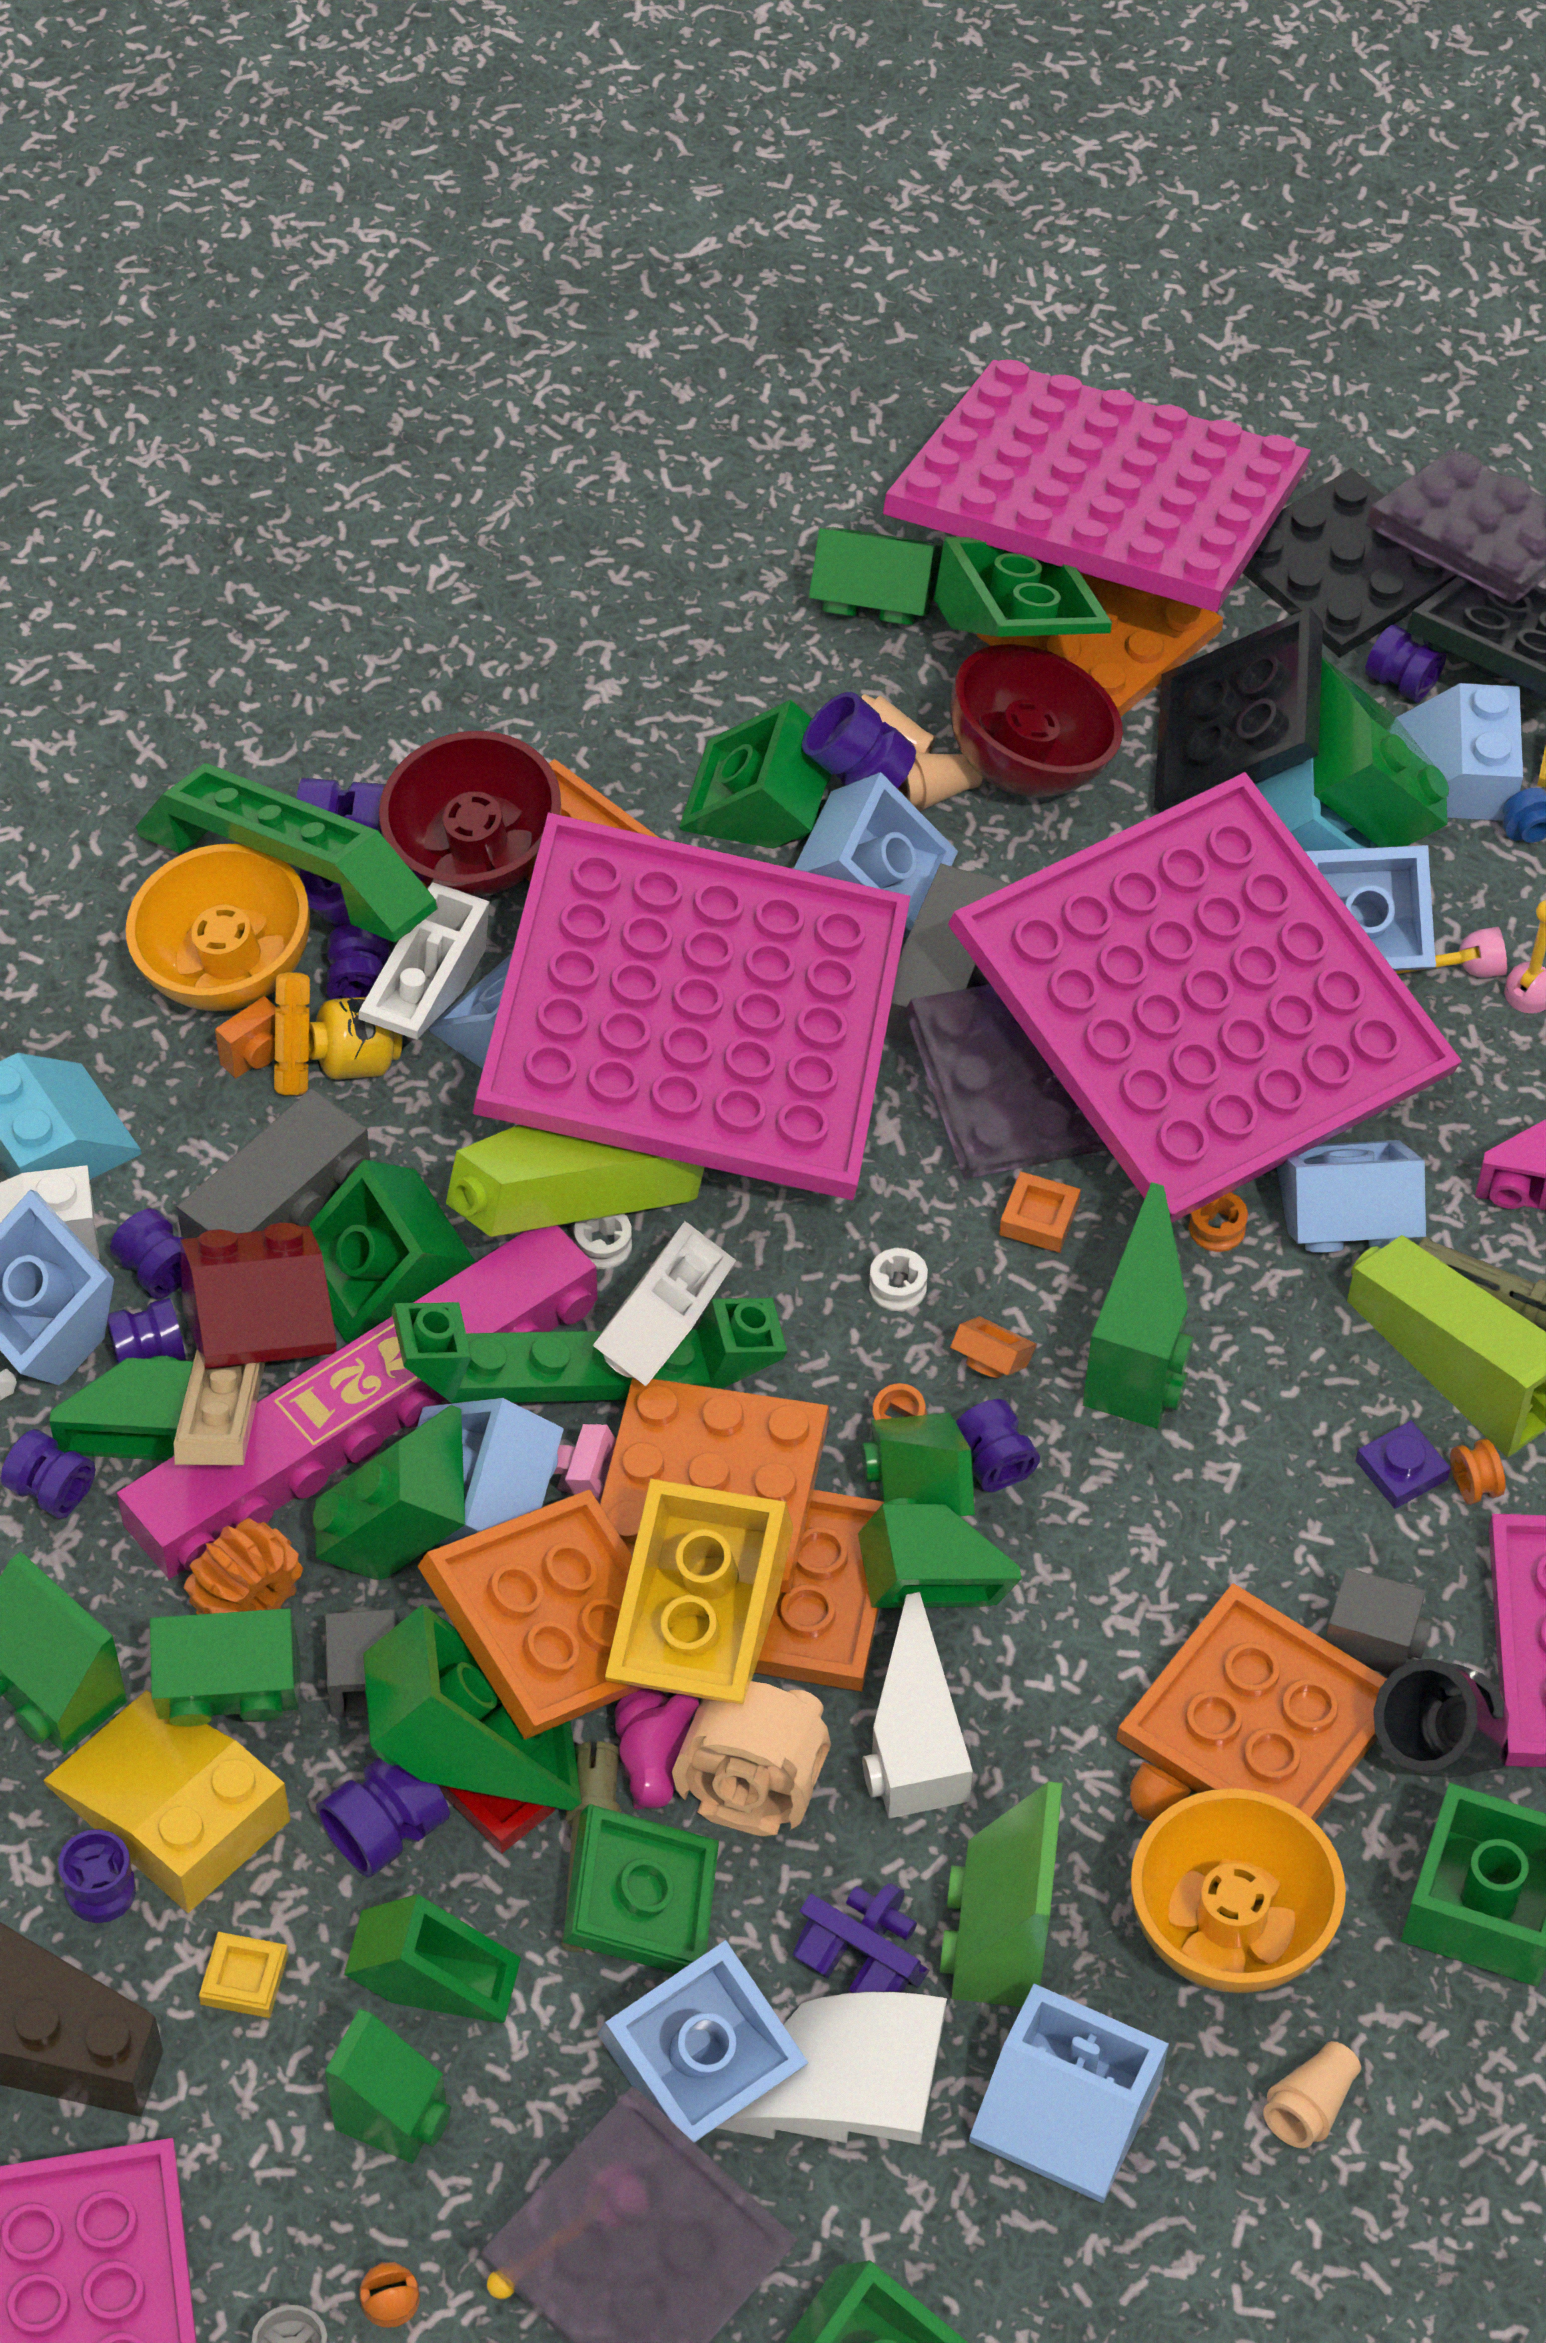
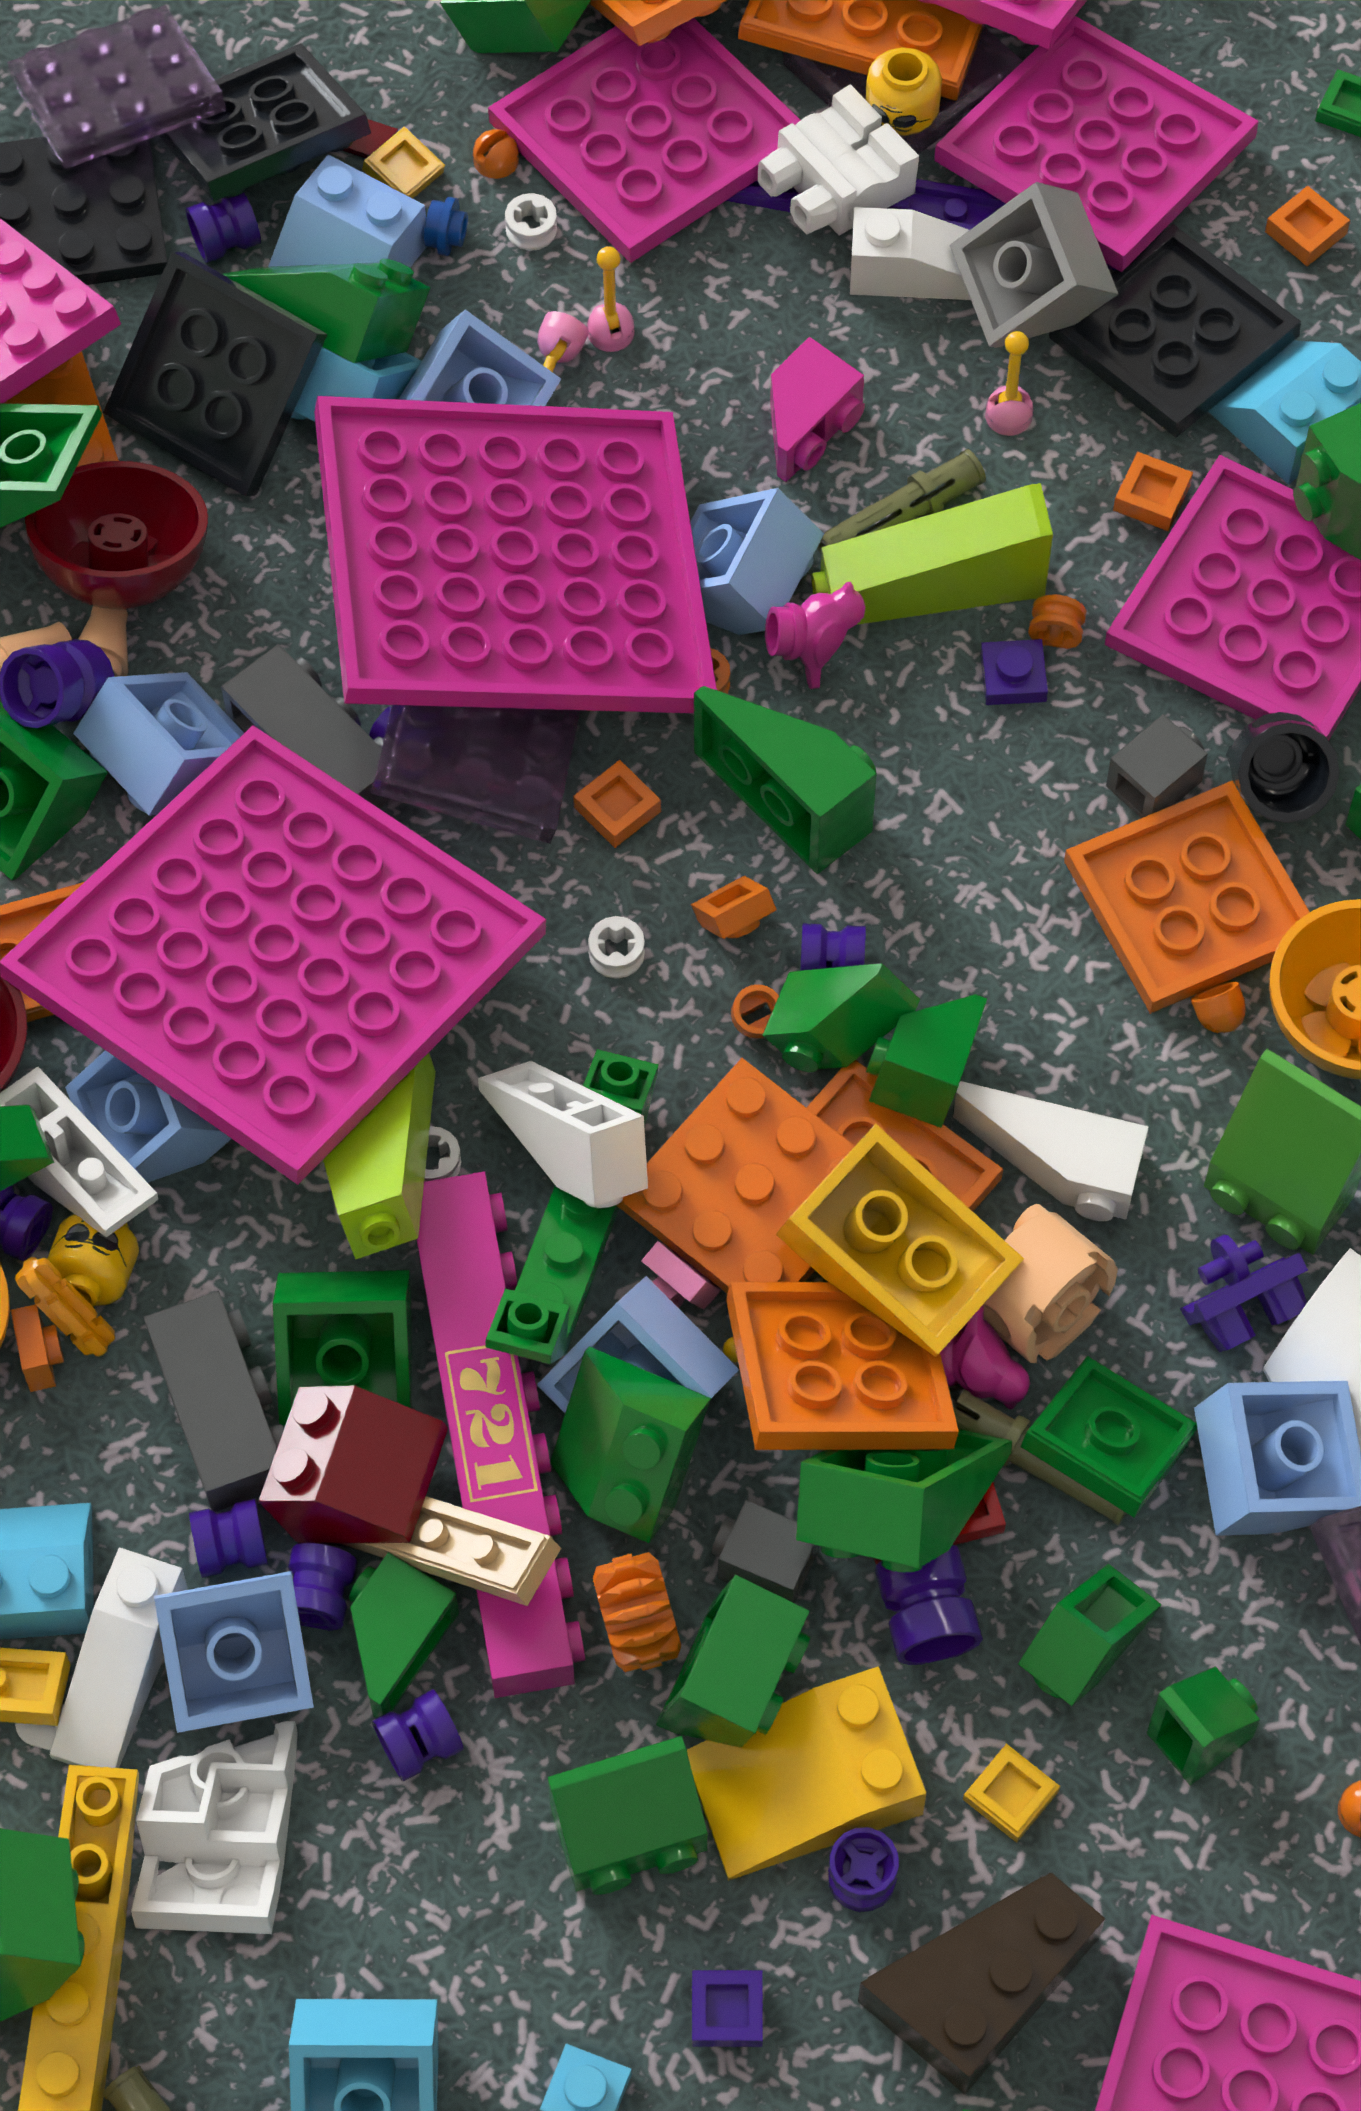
camera: 60 degrees left, 10 degrees up
(1312, 1267) = (813, 629): none -> dark pink animal

